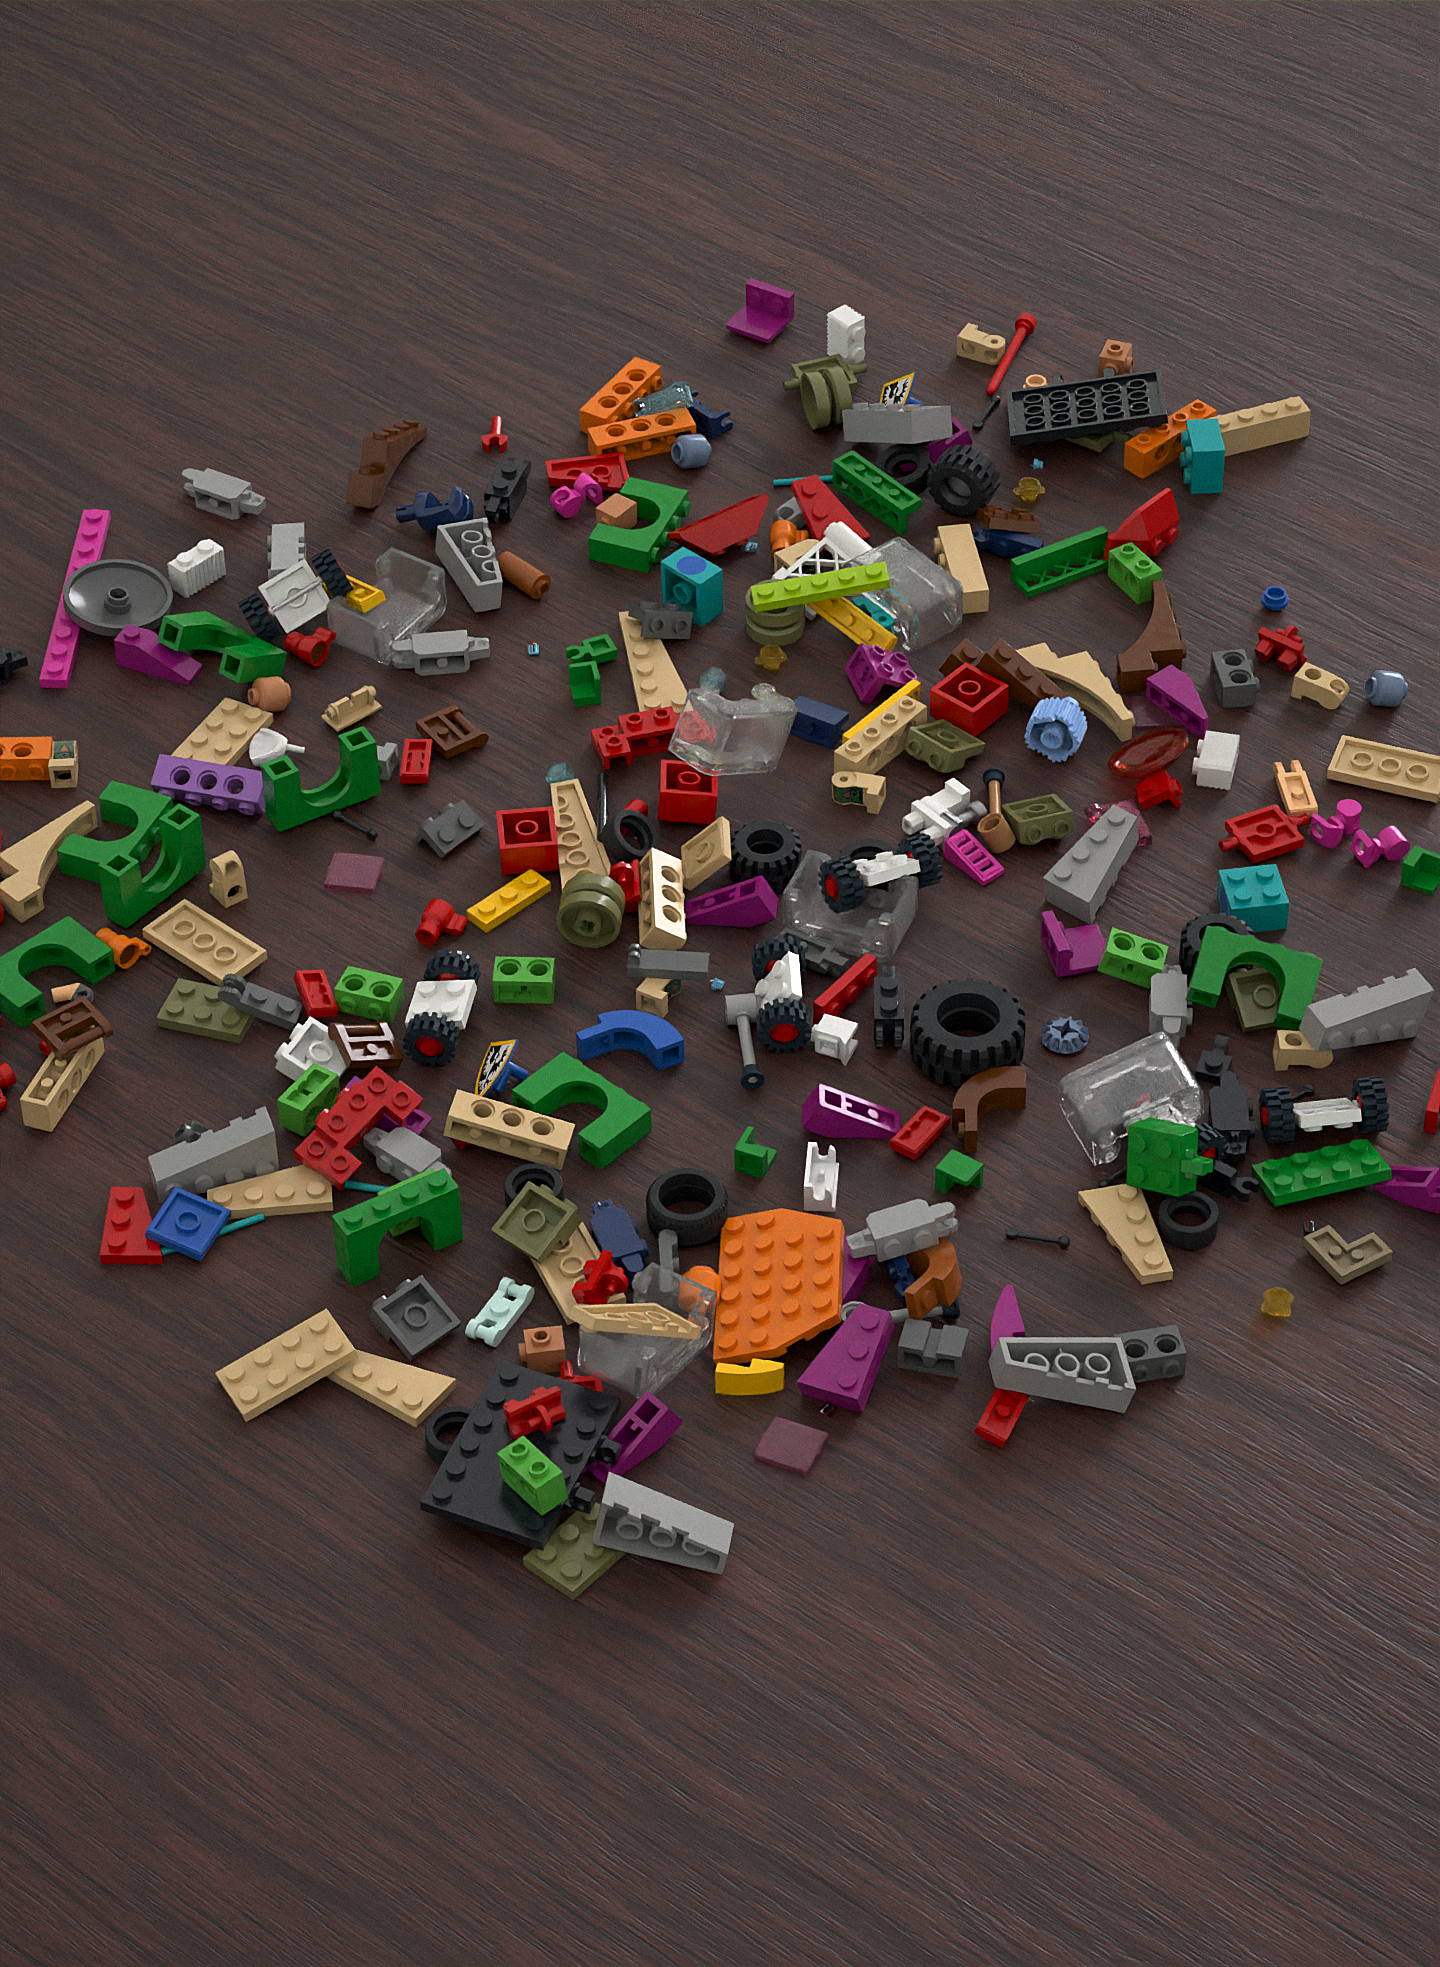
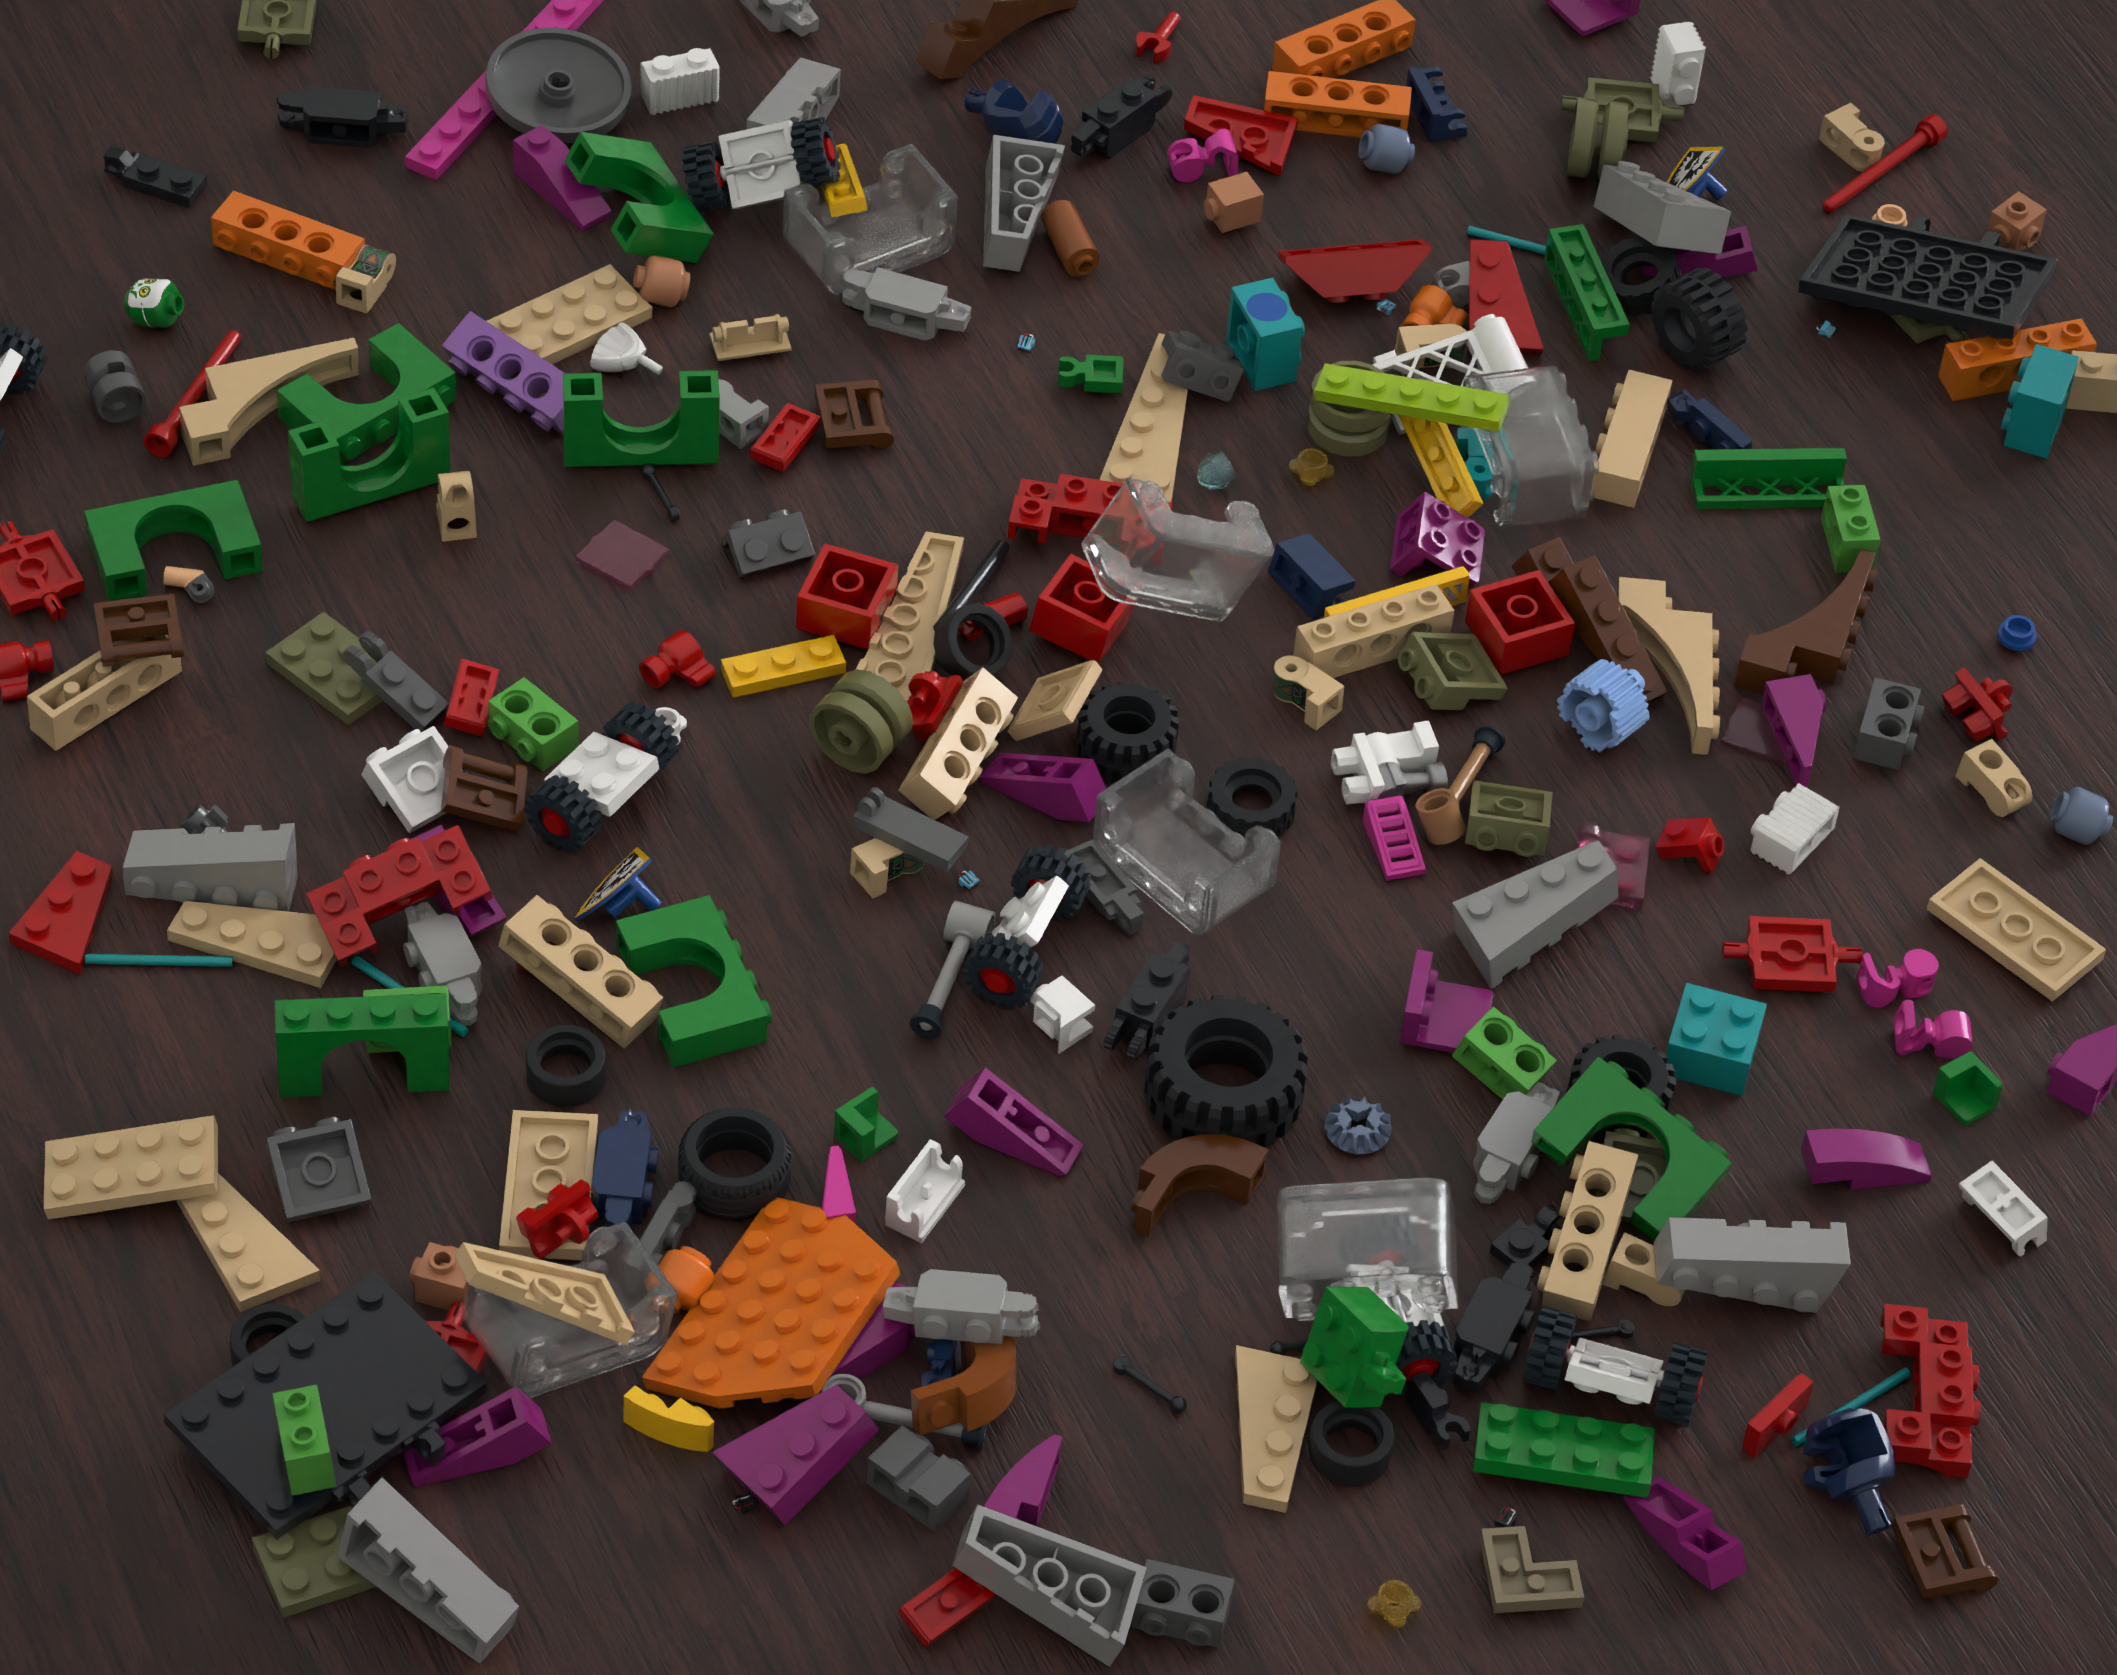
camera: 20 degrees right, 5 degrees up
(125, 950) = (279, 547): orange piece -> none
(188, 1223) = (132, 936): blue plate -> none
(204, 943) = (382, 578): tan plate -> none
(307, 1099) = (367, 829): bright green brick -> none
(310, 648) = (751, 239): red piece -> none
(500, 1312) = (429, 1206): light aqua plate -> none
(524, 980) = (730, 779): bright green brick -> none
(535, 1412) = (363, 1357): red hips -> none
(537, 1222) = (533, 1108): olive plate -> none
(559, 772) = (948, 521): clear light blue plate -> none
(584, 684) = (1053, 414): green panel -> none
(632, 1031) = (818, 901): blue arch -> none
(641, 547) = (1245, 256): green arch -> none
(668, 399) = (1399, 68): clear light blue hinge -> none
(763, 1195) = (837, 1190): none -> dark pink slope
(790, 1445) = (668, 1530): clear pink piece -> none
(843, 877) = (1301, 818): black plate -> none
(846, 988) = (1115, 952): red plate -> none
(919, 1132) = (1088, 1182): red plate -> none
(959, 1169) = (1098, 1255): green panel -> none
(978, 424) = (1782, 246): black hinge -> none
(1014, 520) = (1736, 398): reddish brown plate -> none
(1029, 489) = (1790, 360): clear yellow plate -> none
(1149, 526) = (1904, 472): red wedge -> none
(1149, 754) = (1704, 786): clear red dish -> none
(1252, 997) = (1601, 1169): none -> tan brick
(1295, 790) = (1870, 911): light nougat hinge -> none
(1386, 934) = (1863, 1158): none -> magenta slope

